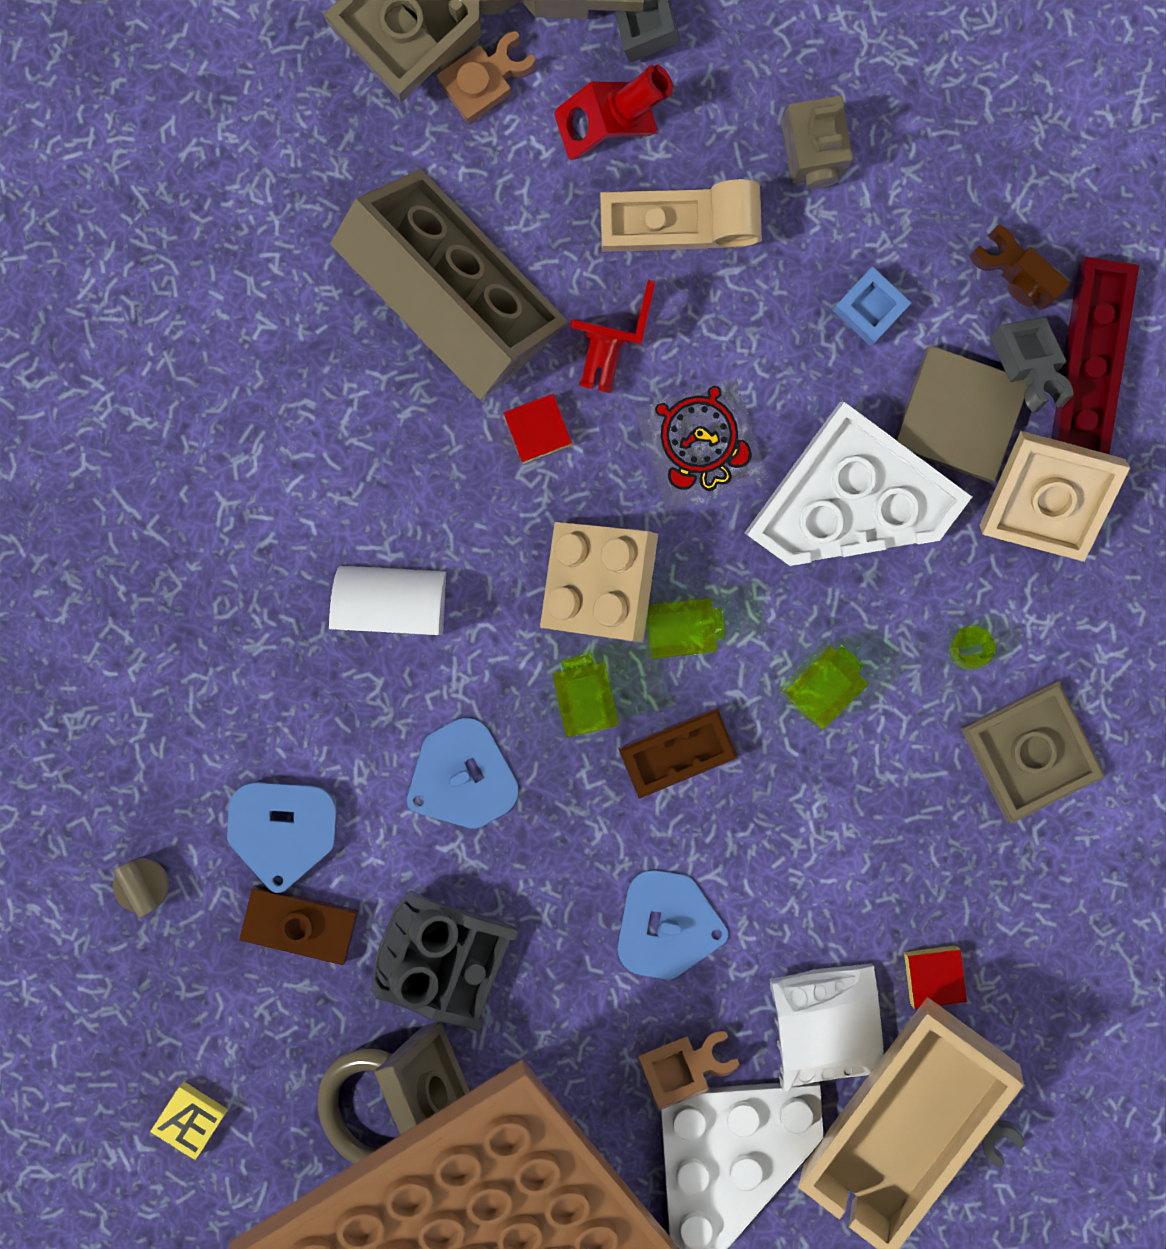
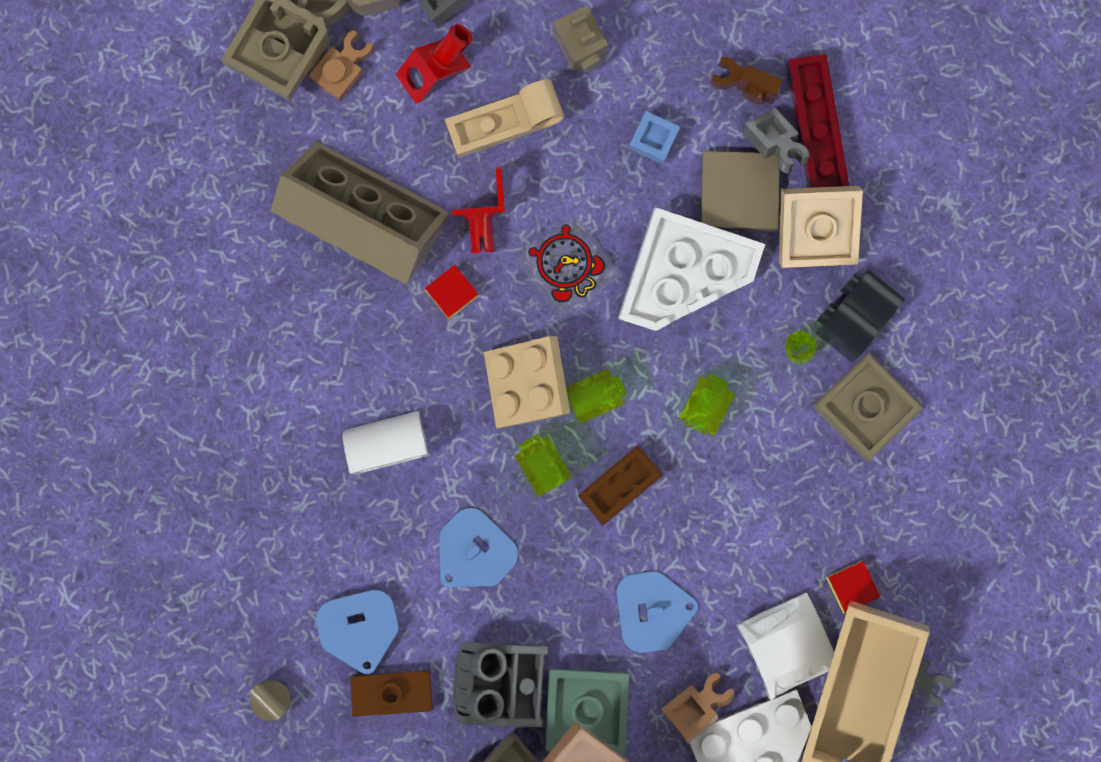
camera: 20 degrees left, 5 degrees down
(545, 1023) = (592, 699): none -> sand green plate
(1063, 629) = (859, 315): none -> black brick

